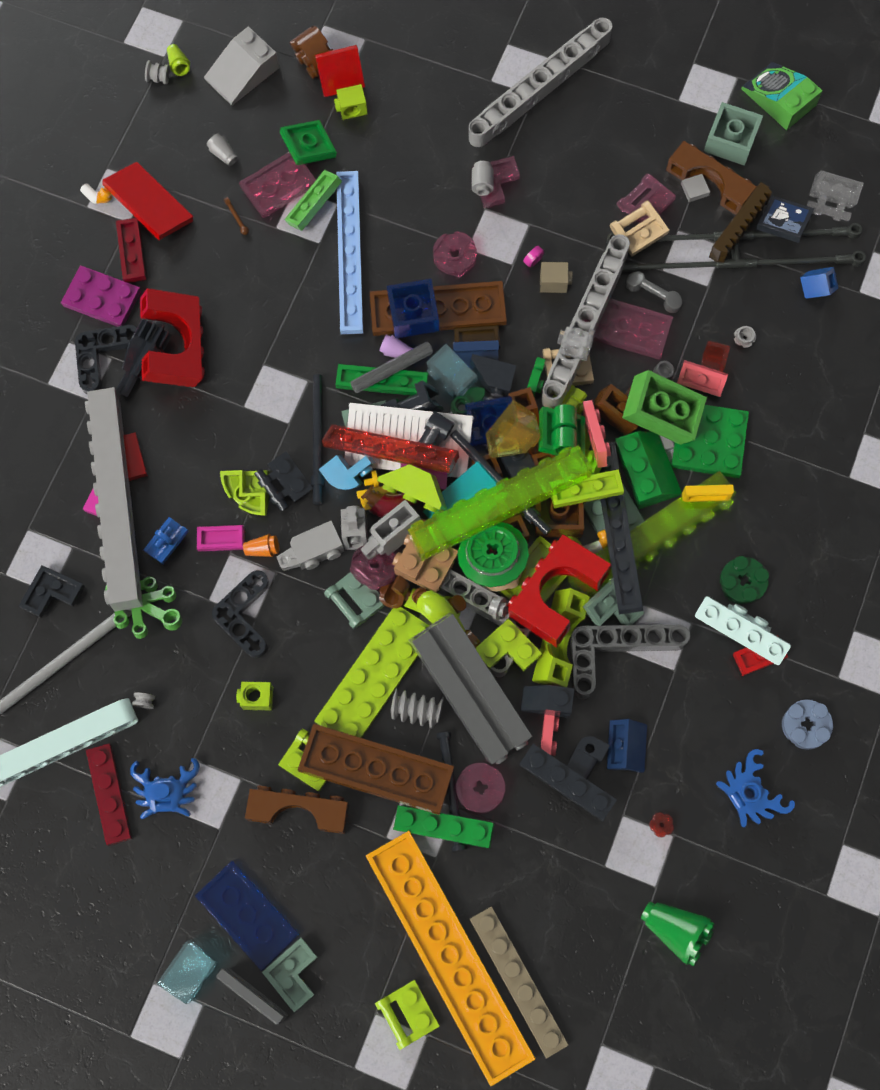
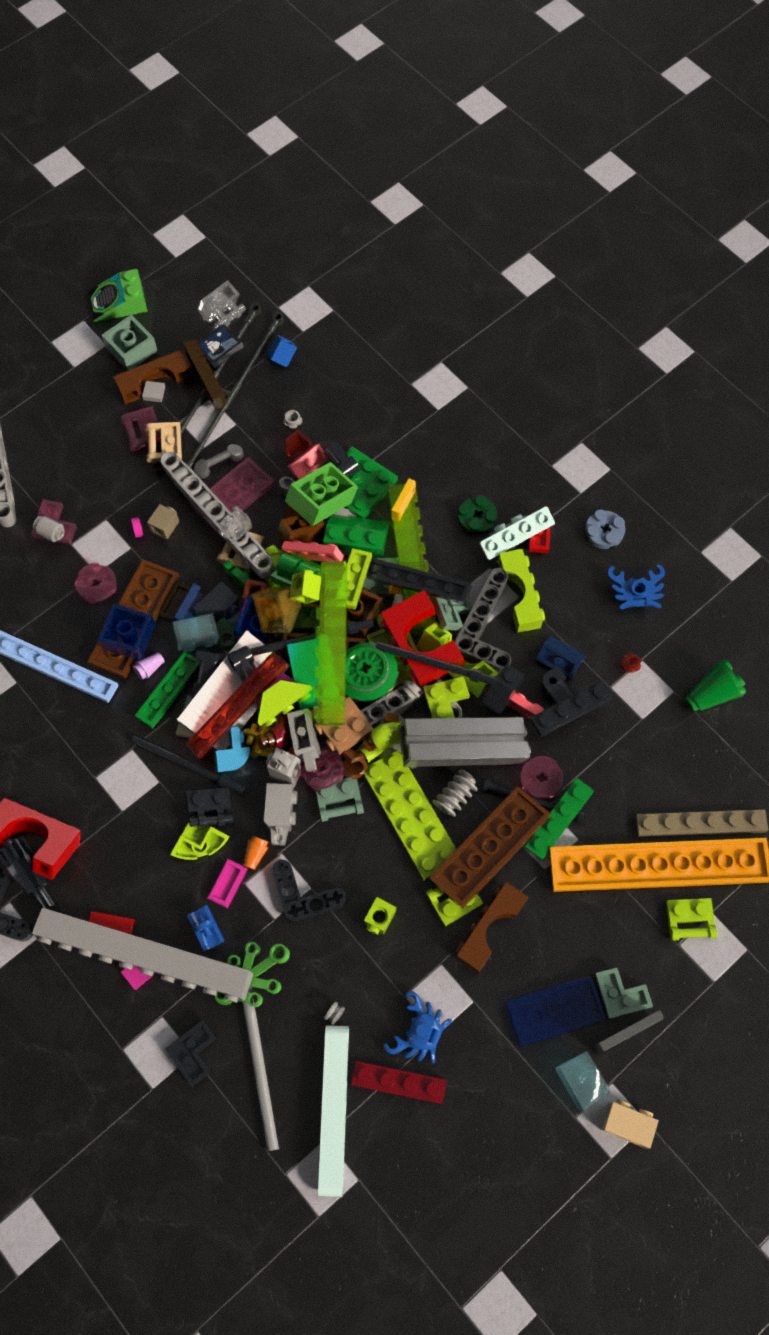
camera: 65 degrees left, 5 degrees down
(167, 1039) = (629, 1124): none -> tan brick
(391, 367) = (164, 675): dark grey axle -> none
(540, 660) = (475, 675): none -> black bar
(542, 444) = (305, 587): none -> lime brick
(656, 685) = (527, 613): none -> lime arch
(717, 413) = (341, 460): none -> black piece

